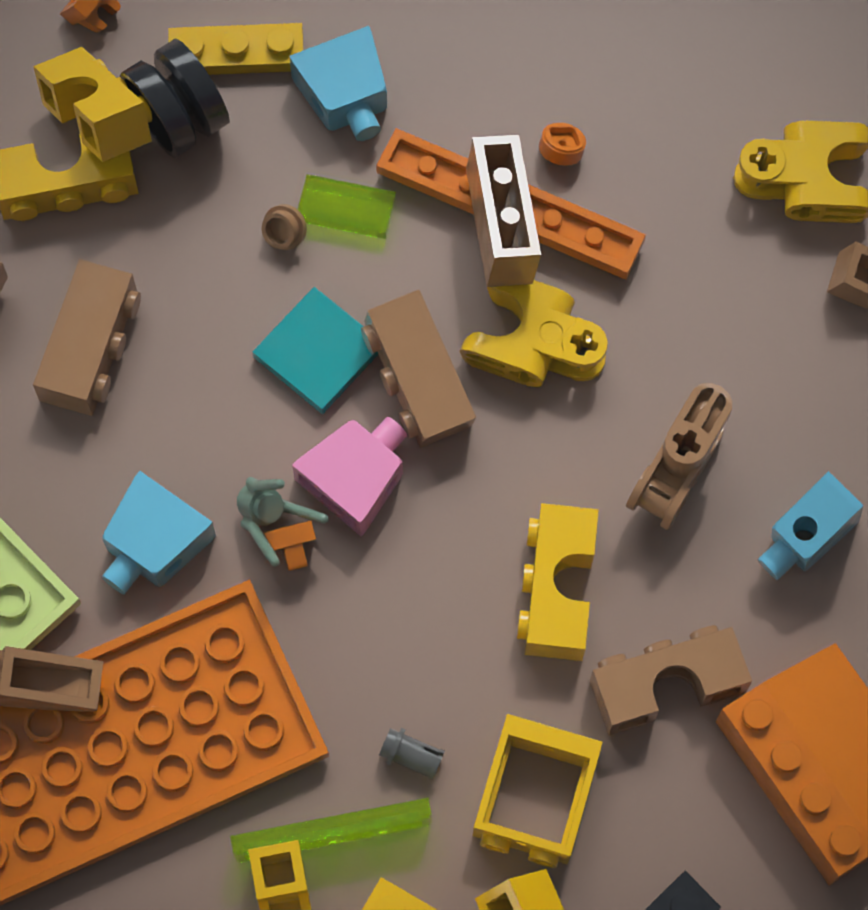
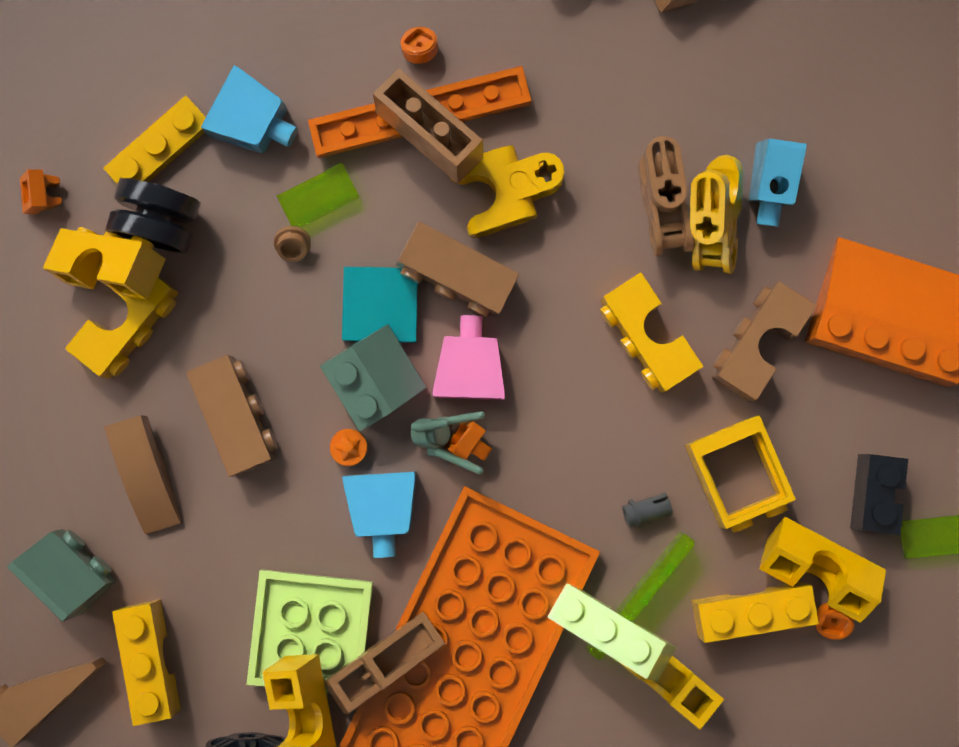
camera: 35 degrees left, 15 degrees up
(170, 457) = (348, 447): none -> orange tile
(251, 405) = (373, 377): none -> sand green slope
(269, 824) = (612, 632): none -> yellowish green arch
(719, 509) = (714, 214): none -> yellow piece

